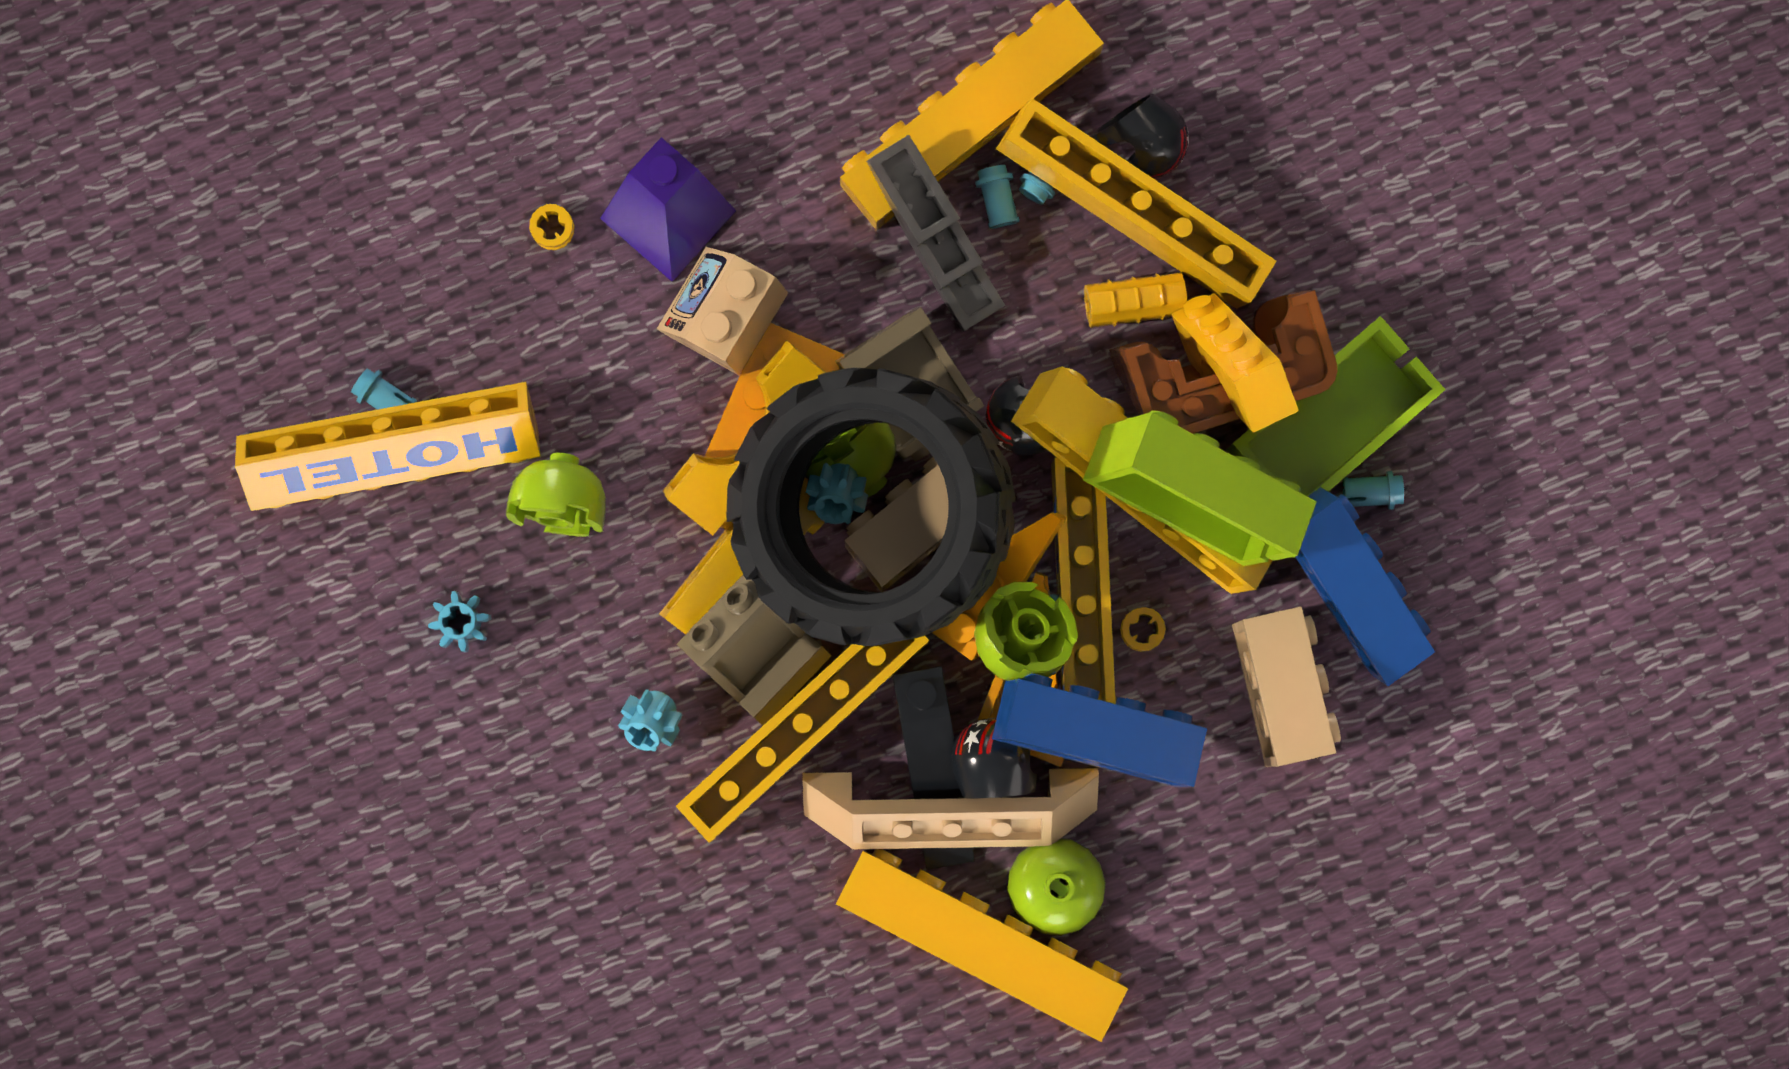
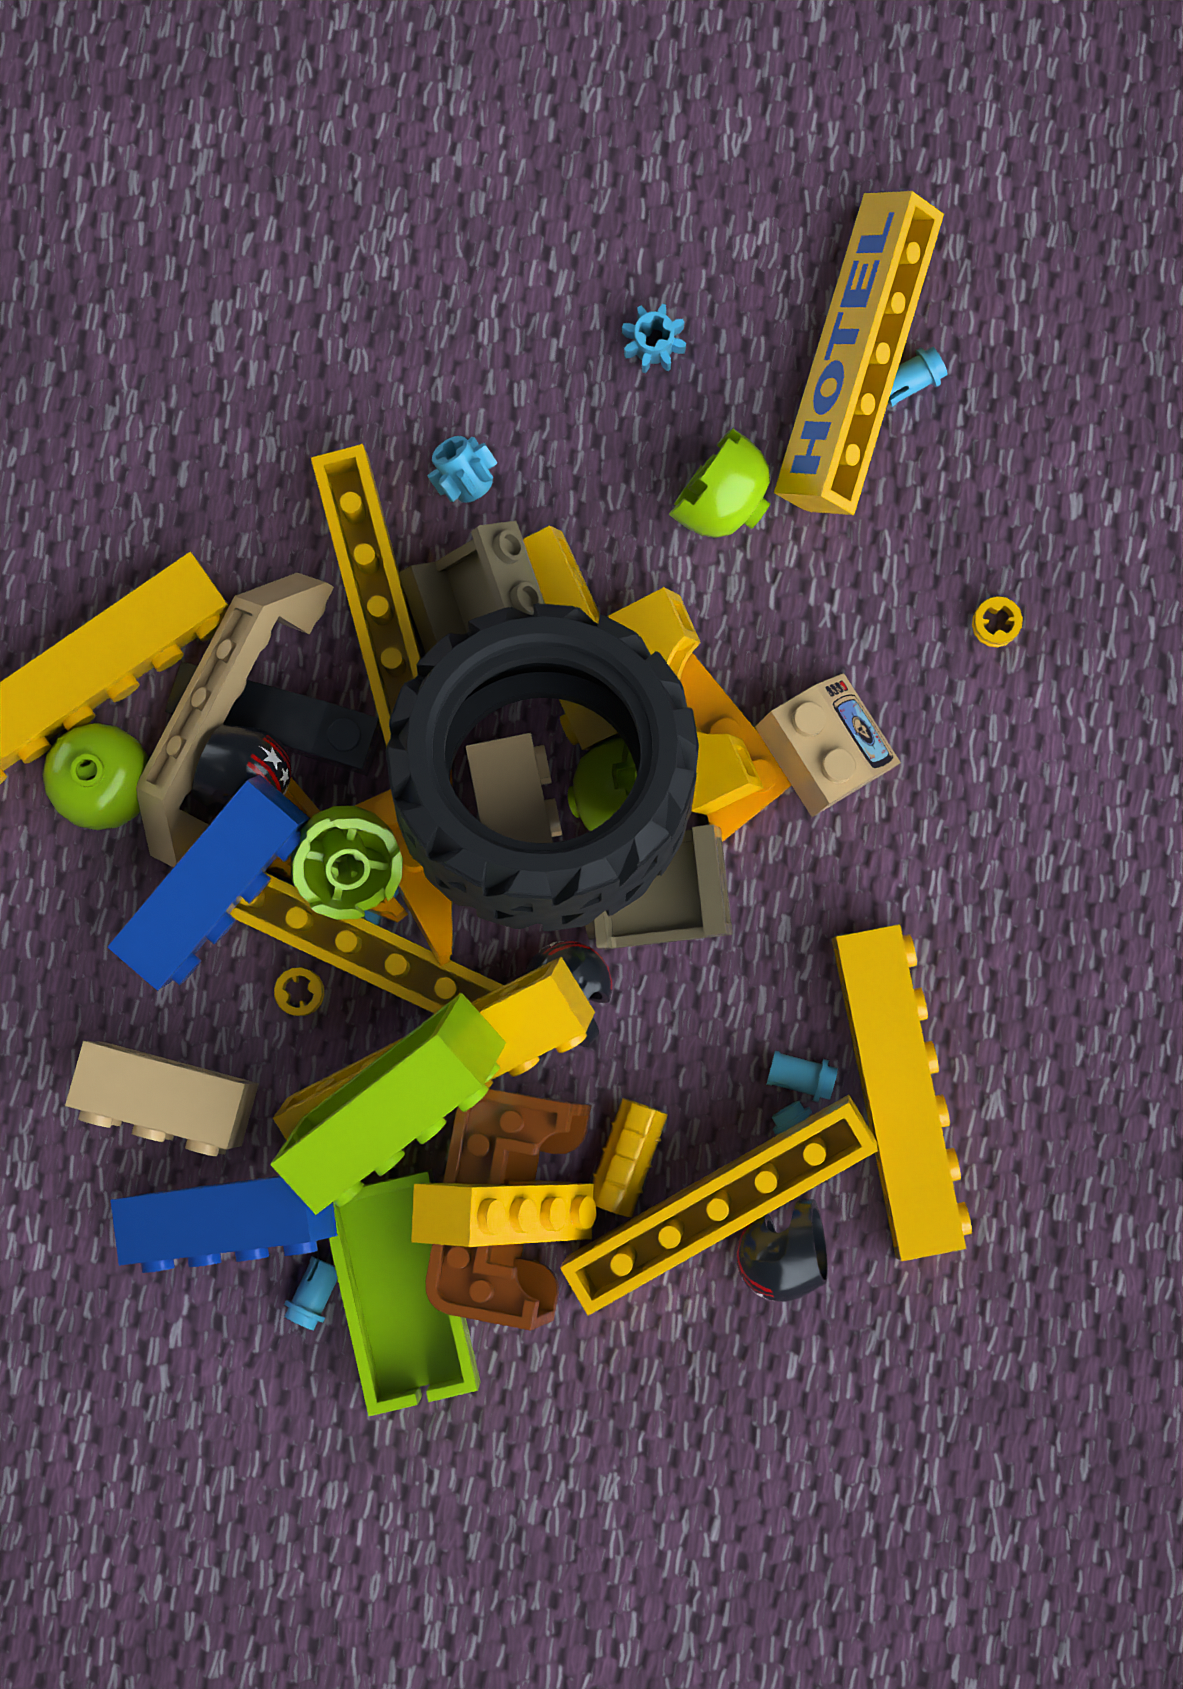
camera: 125 degrees right, 0 degrees up
(667, 210) = (955, 741): dark purple slope -> none
(836, 493) = (581, 750): medium azure gear -> none
(935, 232) = (795, 989): flat silver slope -> none

